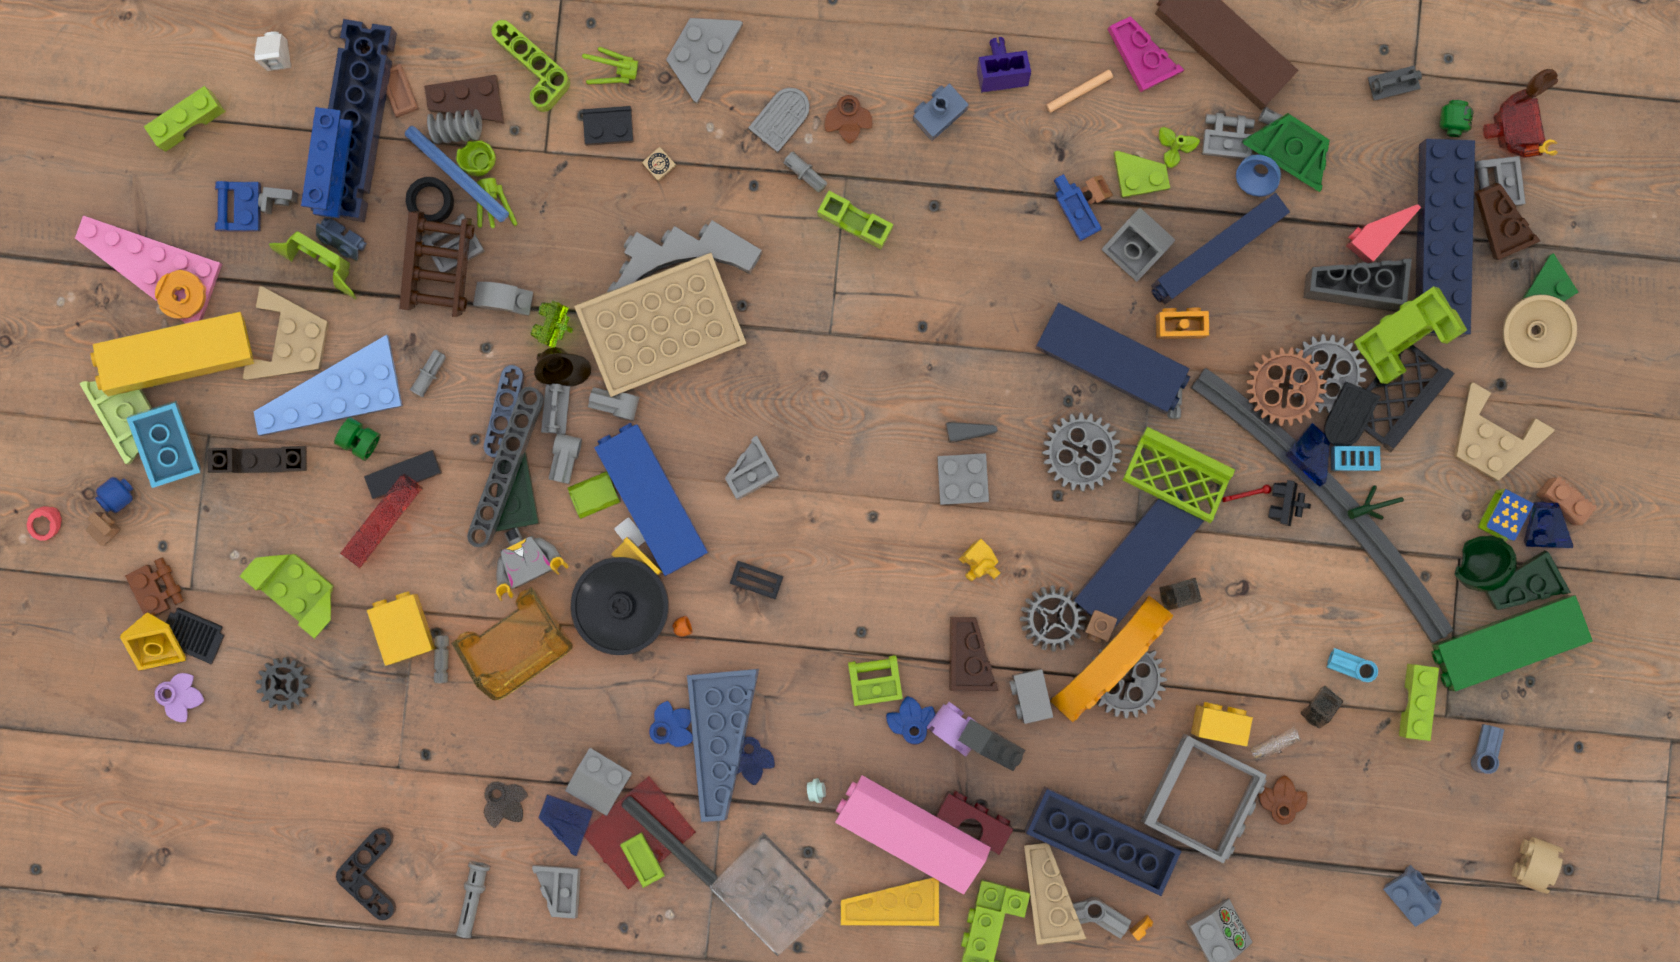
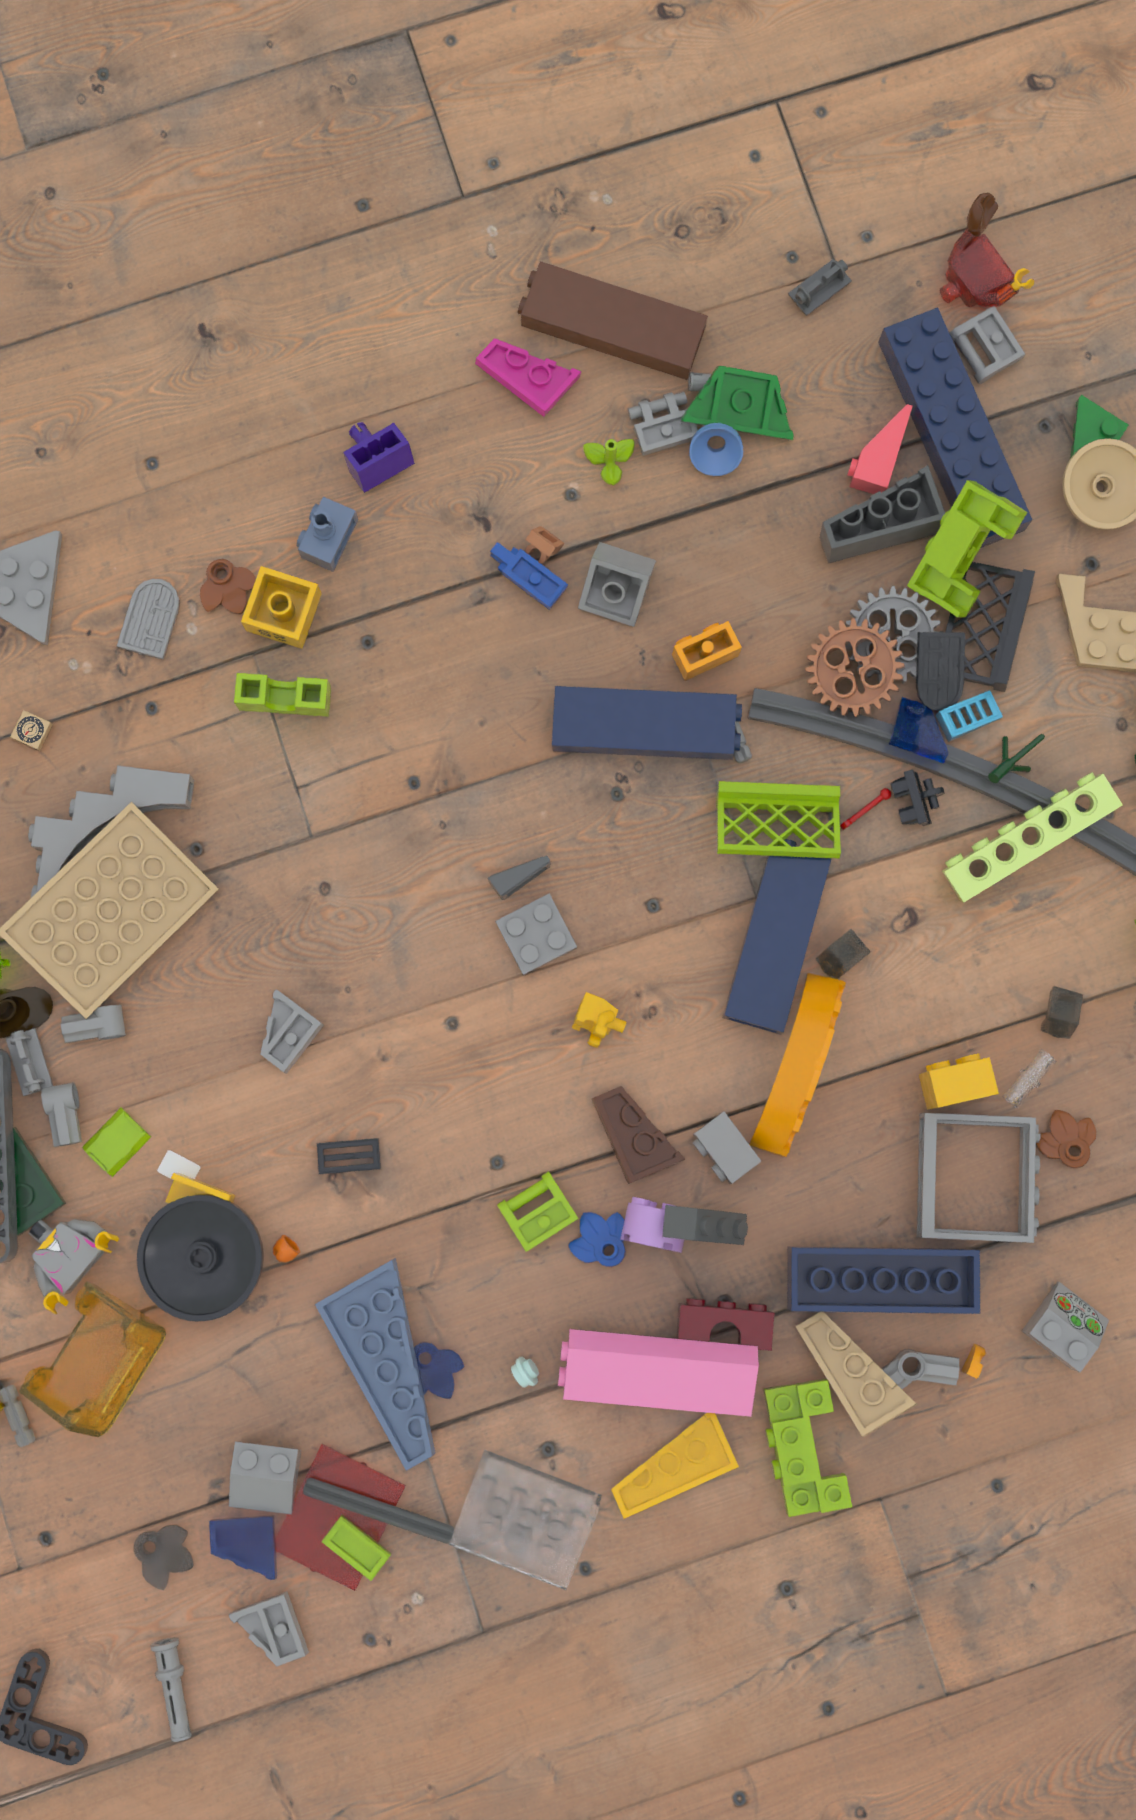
camera: 25 degrees left, 5 degrees down
(650, 499) = (184, 1117): blue brick -> none
(675, 724) = (326, 1368): blue plate -> none
(805, 171) = (202, 666): light grey axle -> none
(882, 153) = (281, 607): none -> yellow brick
(1035, 606) = (683, 1042): light grey gear -> none
(1079, 91) = (474, 445): light nougat bar -> none
(1091, 432) = (659, 816): light grey gear -> none
(1100, 626) = (768, 1033): medium nougat bracket -> none
(1139, 175) = (584, 507): lime wing -> none
(1148, 685) = (853, 1075): light grey gear -> none
(1219, 249) = (709, 548): dark blue brick -> none
(1350, 665) = (1071, 949): medium azure piece -> none
(1422, 569) = (1102, 802): none -> yellowish green brick
(1456, 118) = (906, 294): green head -> none
(1503, 223) = (1013, 387): reddish brown wing -> none

